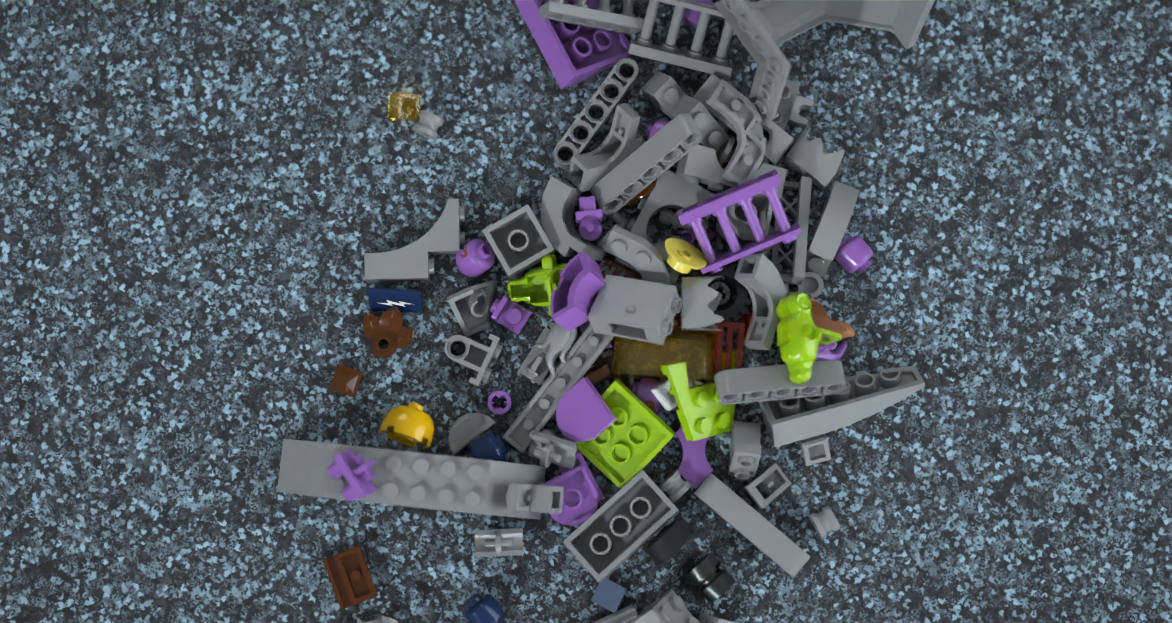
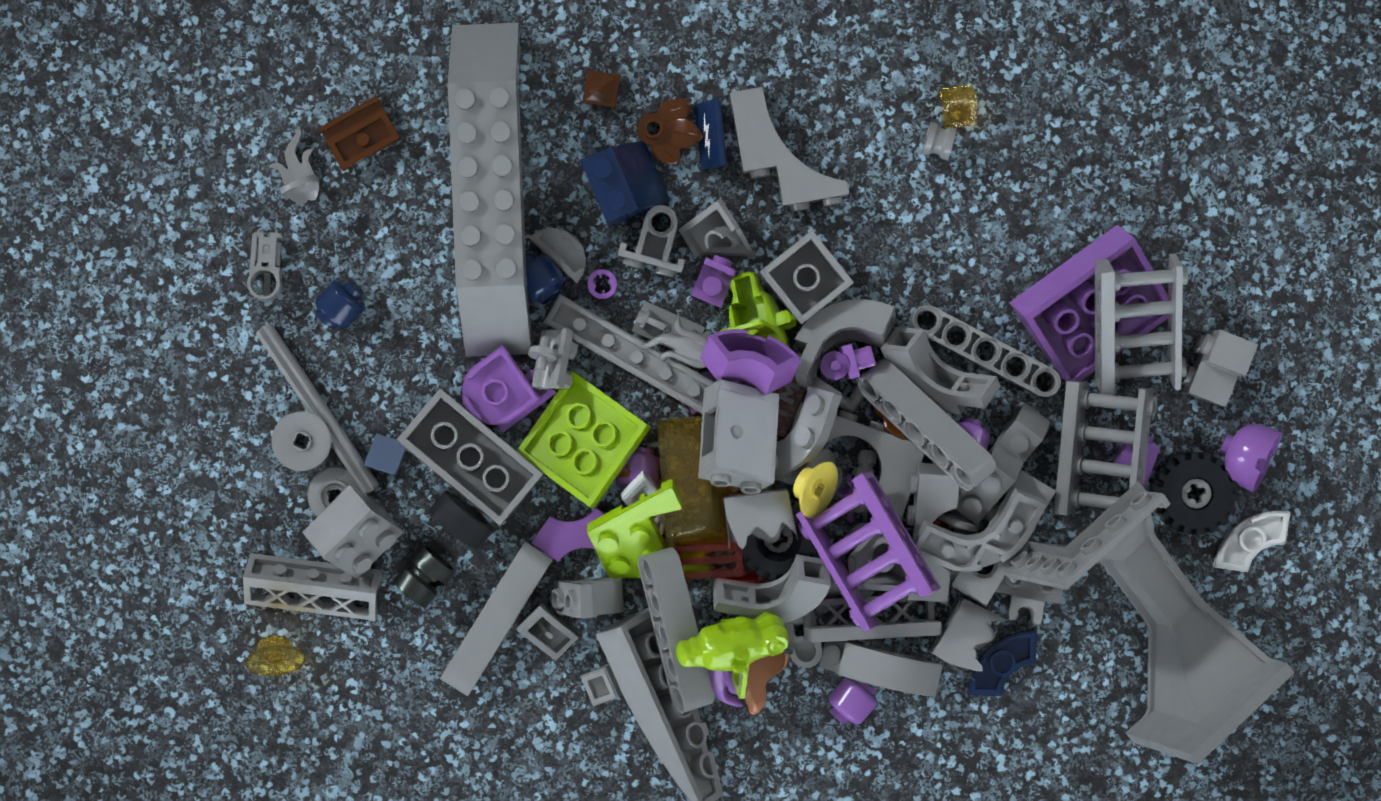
camera: 85 degrees right, 5 degrees up
(356, 472) = (481, 121): medium lavender hips -> none
(409, 425) = (556, 176): yellow cylinder -> none
(422, 372) = (624, 181): none -> dark blue slope
(475, 258) = (777, 226): medium lavender head -> none
(499, 542) = (428, 309): light grey hips -> none
(535, 498) = (487, 346): light grey brick -> none
(583, 412) = (602, 390): medium lavender tile -> none
(597, 374) = (653, 399): reddish brown tile -> none
(674, 486) = (530, 516): light grey wheel -> none
(824, 521) = (513, 707): light grey wheel -> none
(838, 136) = (1001, 661): none -> dark blue tile

